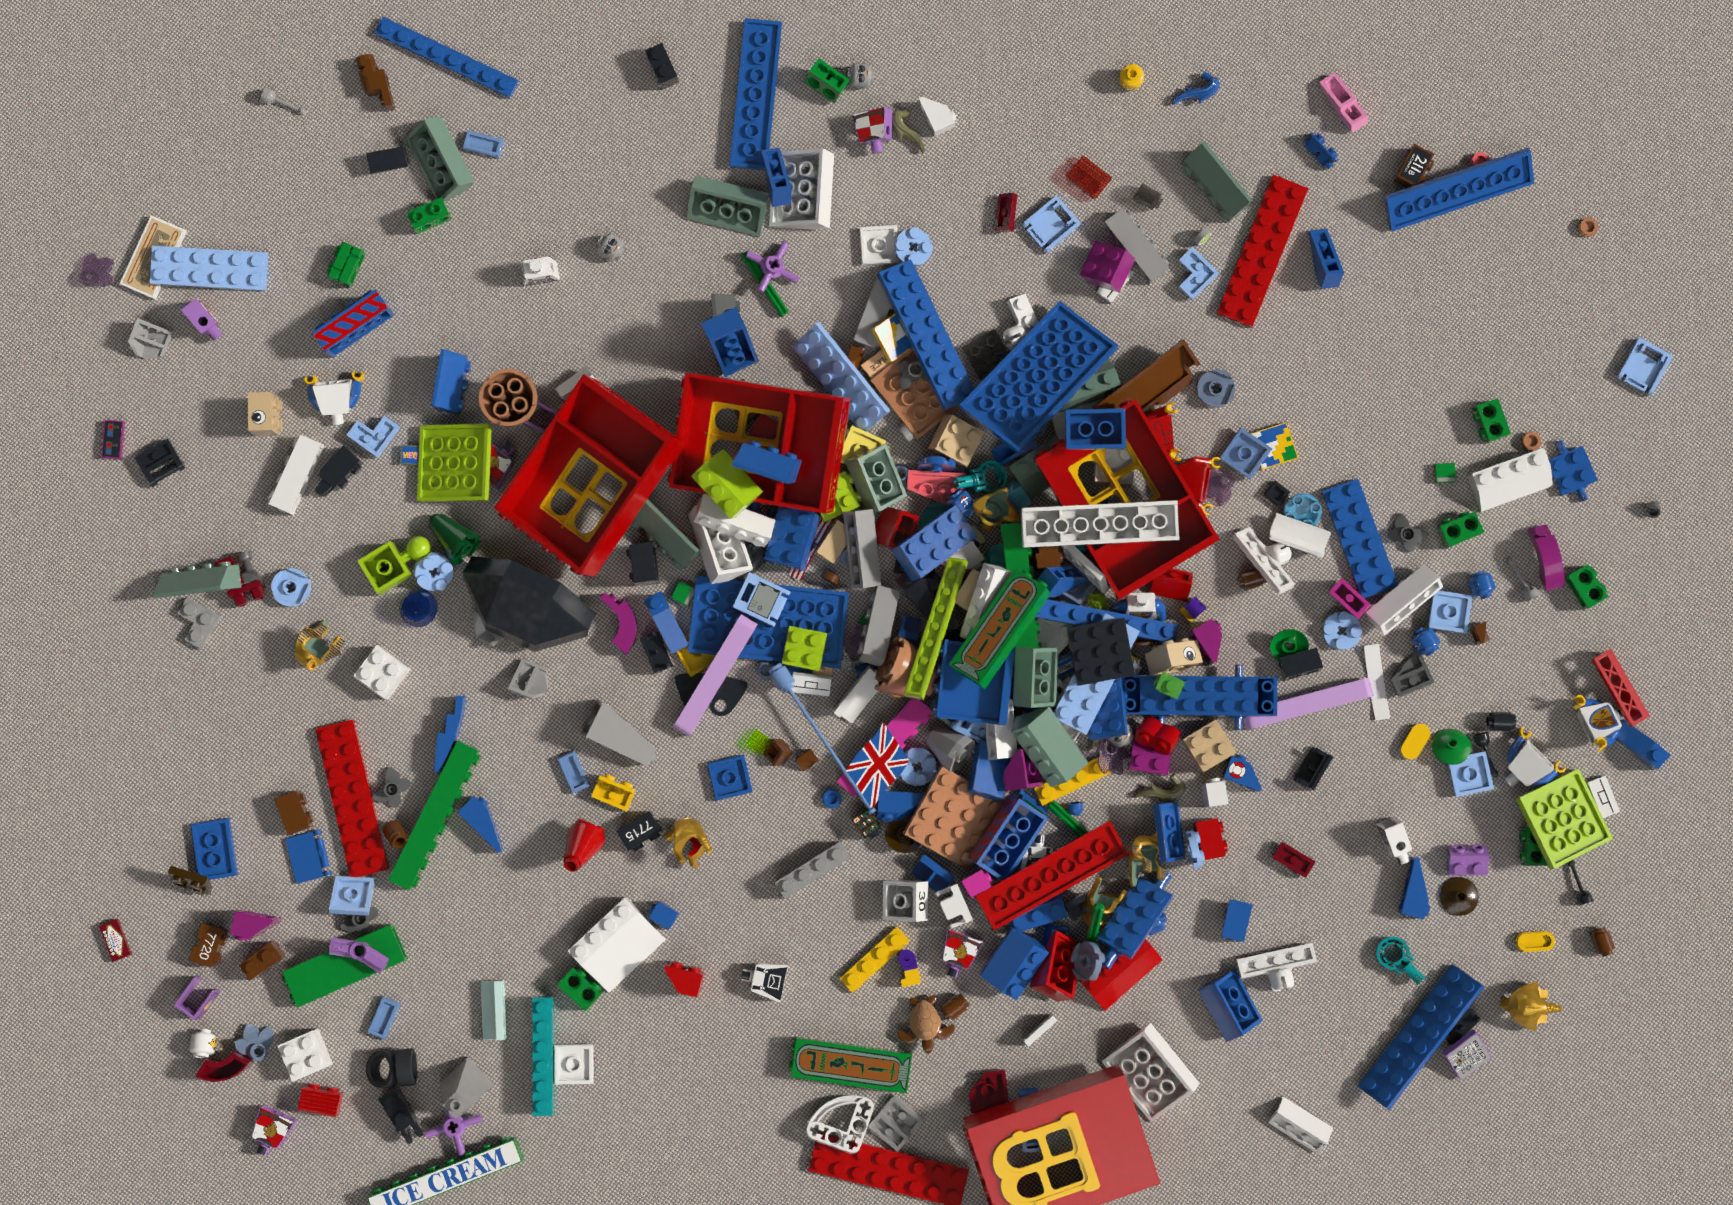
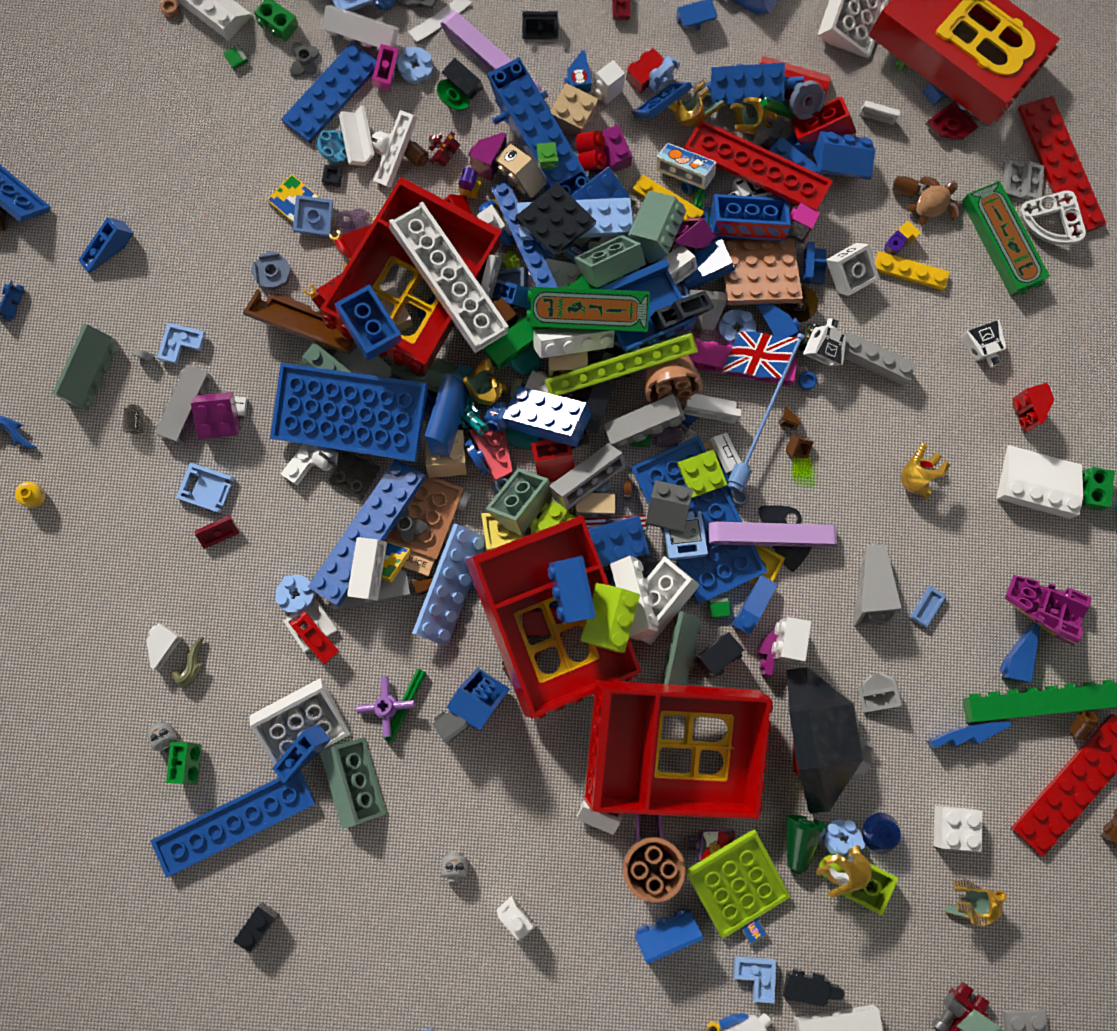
camera: 130 degrees left, 5 degrees down
(296, 597) = (948, 970): light blue plate -> none
(392, 788) = (1044, 754): dark grey animal -> none
(403, 551) = (856, 874): none -> pearl gold piece
(507, 871) = (1050, 608): none -> magenta wedge
(582, 844) = (988, 557): red cone -> none
(613, 792) = (923, 561): yellow bracket -> none
(616, 627) = (791, 640): none -> white brick
(639, 831) = (940, 519): black brick -> none
(656, 652) = (784, 598): black hinge -> none
(663, 914) = (992, 457): blue brick -> none
(729, 777) = (845, 473): blue tile -> none
(792, 599) = (669, 506): none -> dark grey slope
(850, 828) = (827, 344): none -> white torso
(865, 241) = (315, 638): none -> red plate
(874, 127) = (204, 693): torso -> none
(892, 314) = (367, 568): none -> white panel
(909, 628) = (629, 401): blue panel -> none
(951, 709) = (681, 311): none -> black slope
(954, 905) = (831, 228): white panel -> none
(959, 951) = (860, 207): torso -> none
(985, 457) = (446, 415): none -> blue brick
(1088, 177) = (144, 480): clear red plate -> none
(1092, 813) = (686, 166): none -> brick
(1111, 759) = (632, 179): plate -> none
(1165, 794) = (628, 119): olive piece -> none
(1238, 598) = (449, 143): none -> dark red hips
(1262, 251) = (127, 300): red plate -> none
(1496, 419) = (167, 39): green brick -> none

